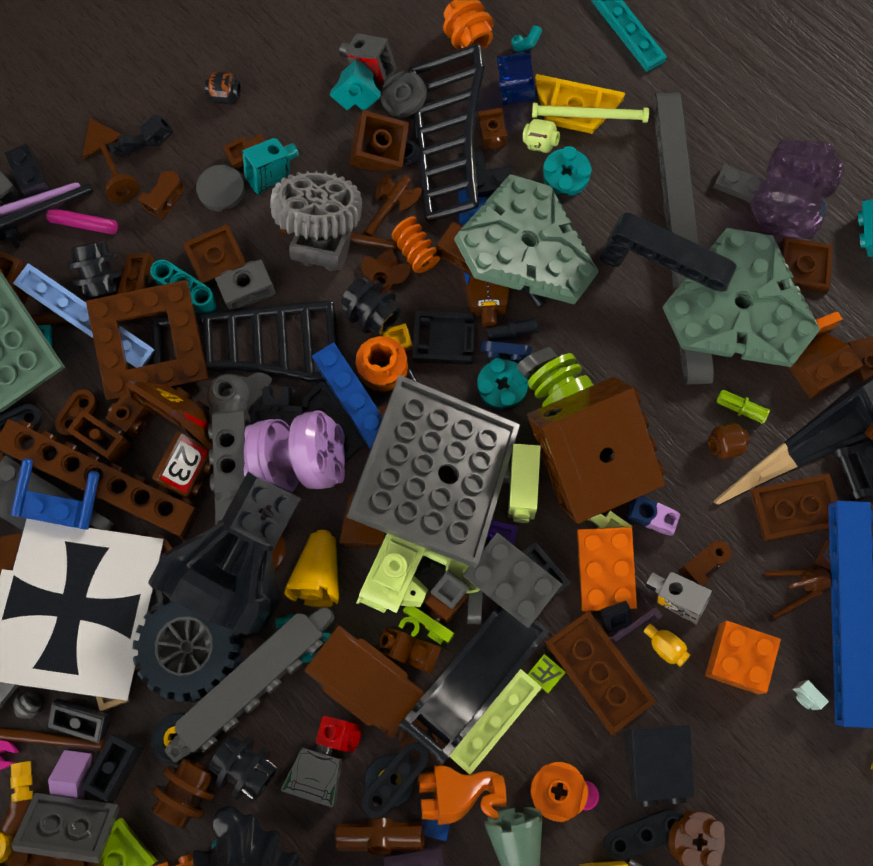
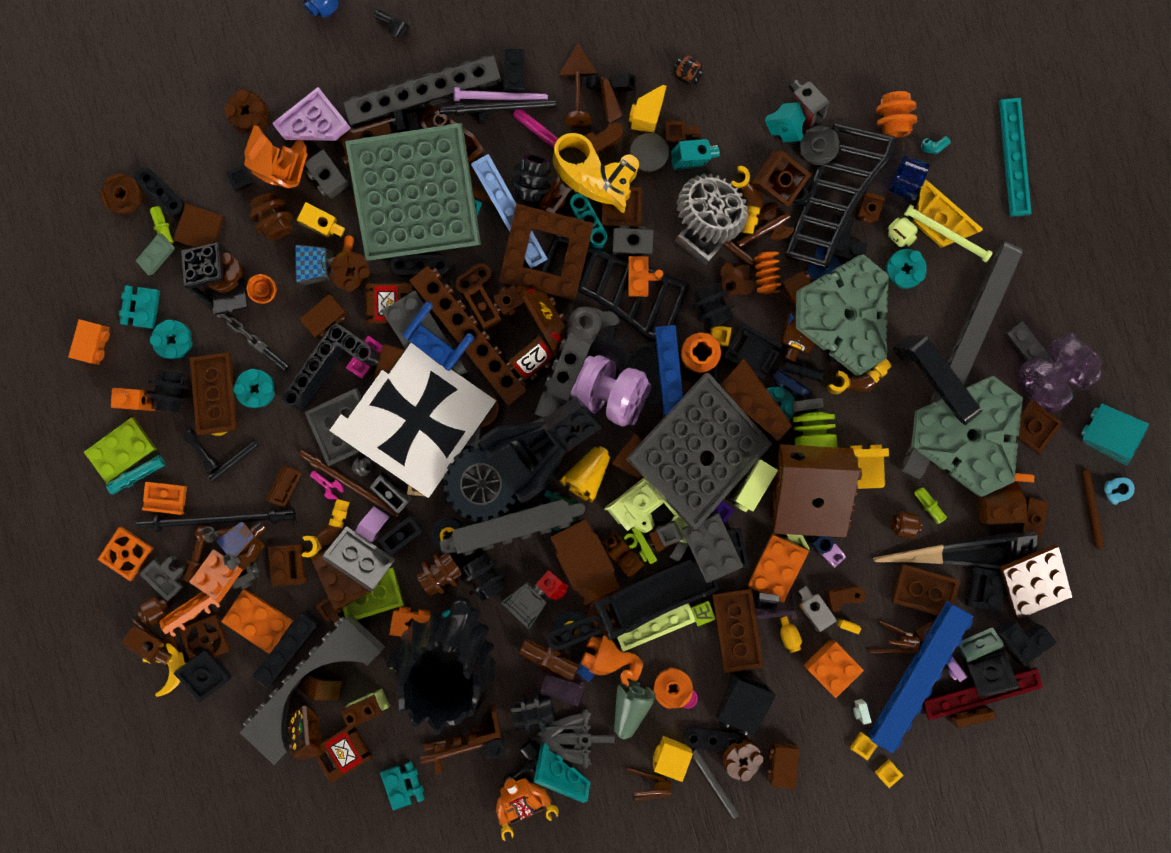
camera: 25 degrees right, 15 degrees up
(152, 157) = (611, 107): none -> reddish brown slope
(164, 237) = (592, 179): none -> yellow animal
(194, 141) = (647, 110): none -> yellow slope
(271, 317) = (639, 276): none -> orange plate
(359, 177) = (753, 199): none -> yellow piece
(474, 383) = (755, 400): none -> reddish brown wedge
(584, 311) = (863, 382): none -> piece
(654, 399) = (872, 465): none -> yellow bracket
(731, 596) = (847, 625): none -> yellow tile
(753, 820) = (783, 765): none -> reddish brown brick
(838, 740) = (863, 746): none -> yellow tile

